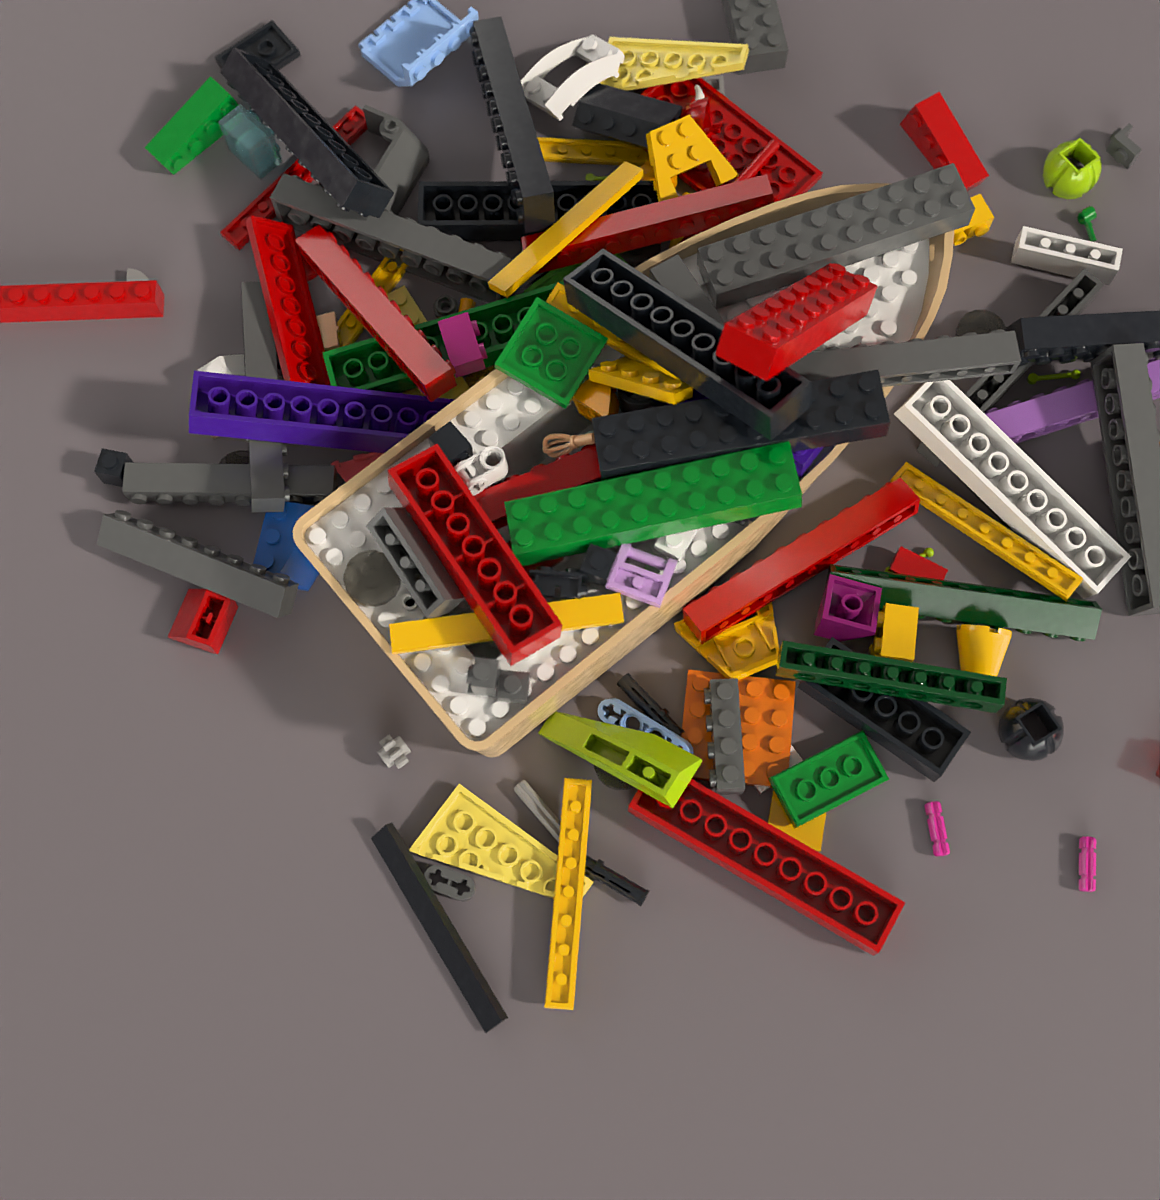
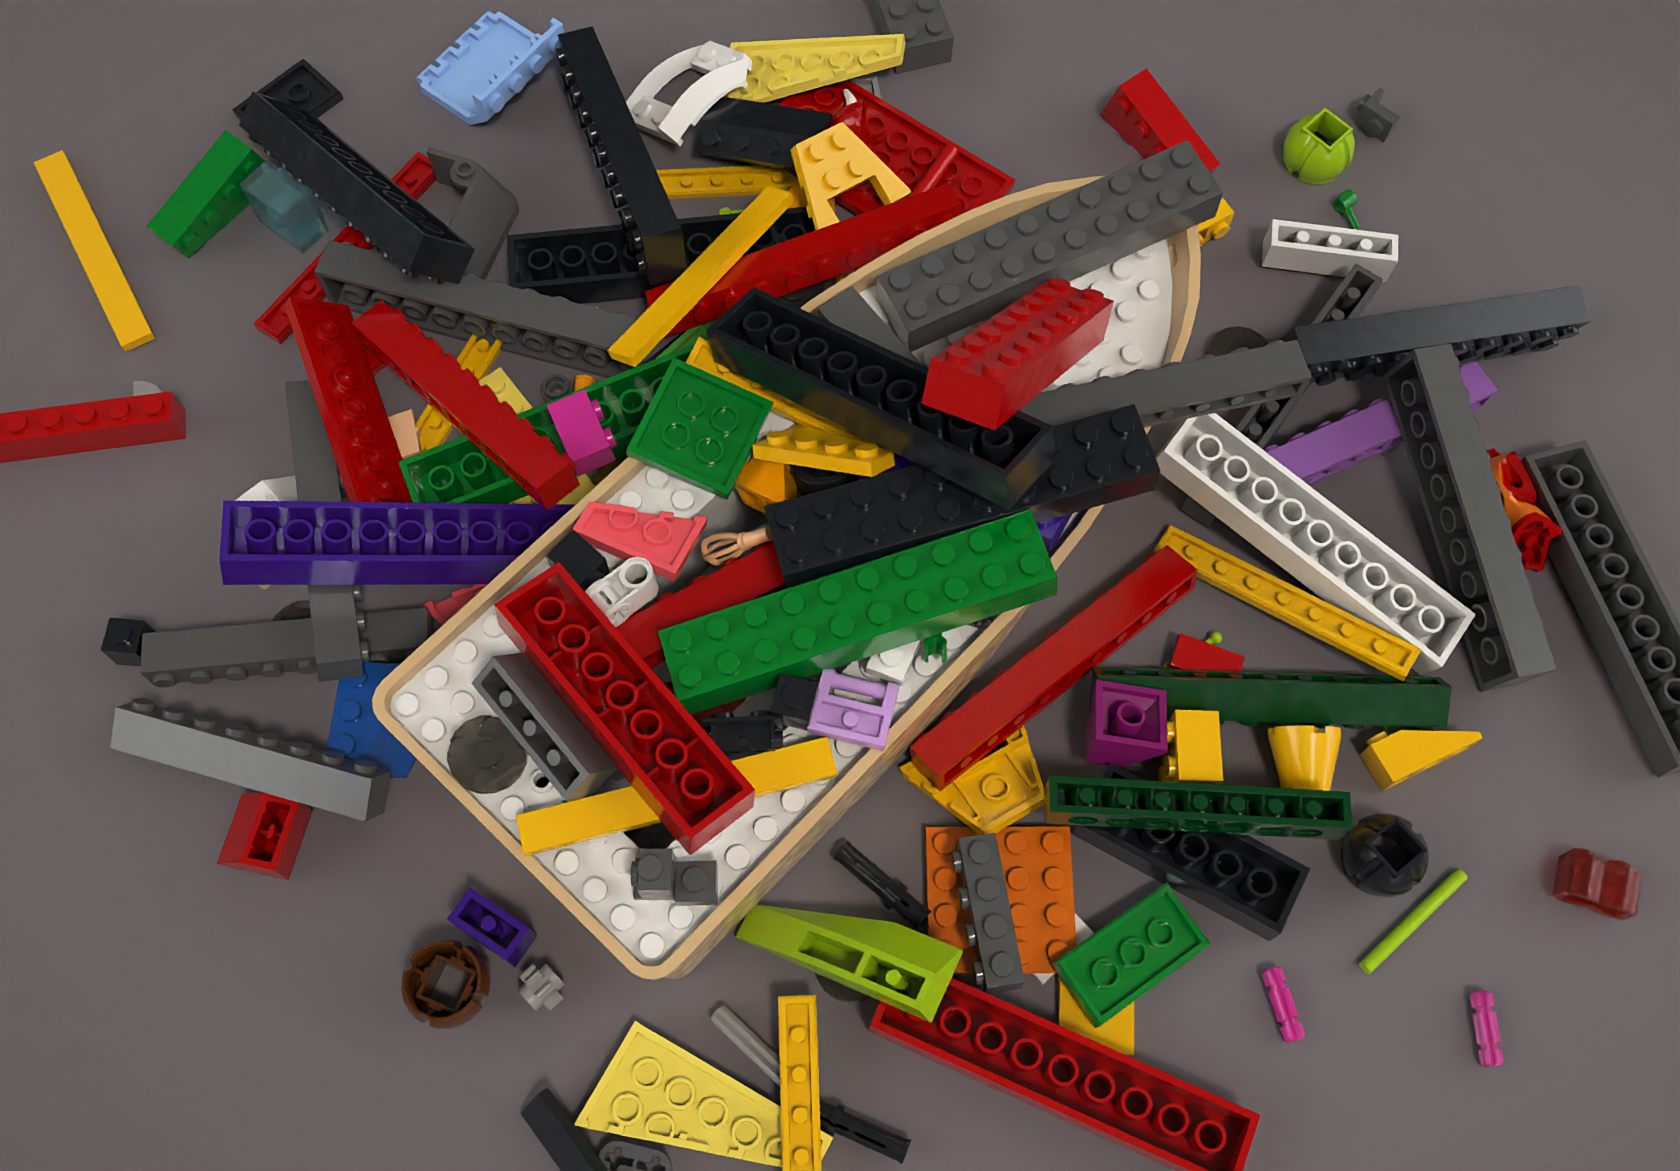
camera: 10 degrees left, 5 degrees down
(103, 162) = (94, 251): none -> yellow tile
(311, 732) = (424, 975): none -> reddish brown piece
(362, 704) = (492, 927): none -> dark purple brick
(493, 428) = (627, 534): none -> coral wing
(646, 723) = (880, 908): light blue beam -> none
(707, 534) = (935, 645): none -> green hand
(1033, 378) = (1312, 404): lime hinge -> none
(1045, 780) = (1413, 921): none -> lime bar
(1066, 655) = (1410, 752): none -> yellow slope

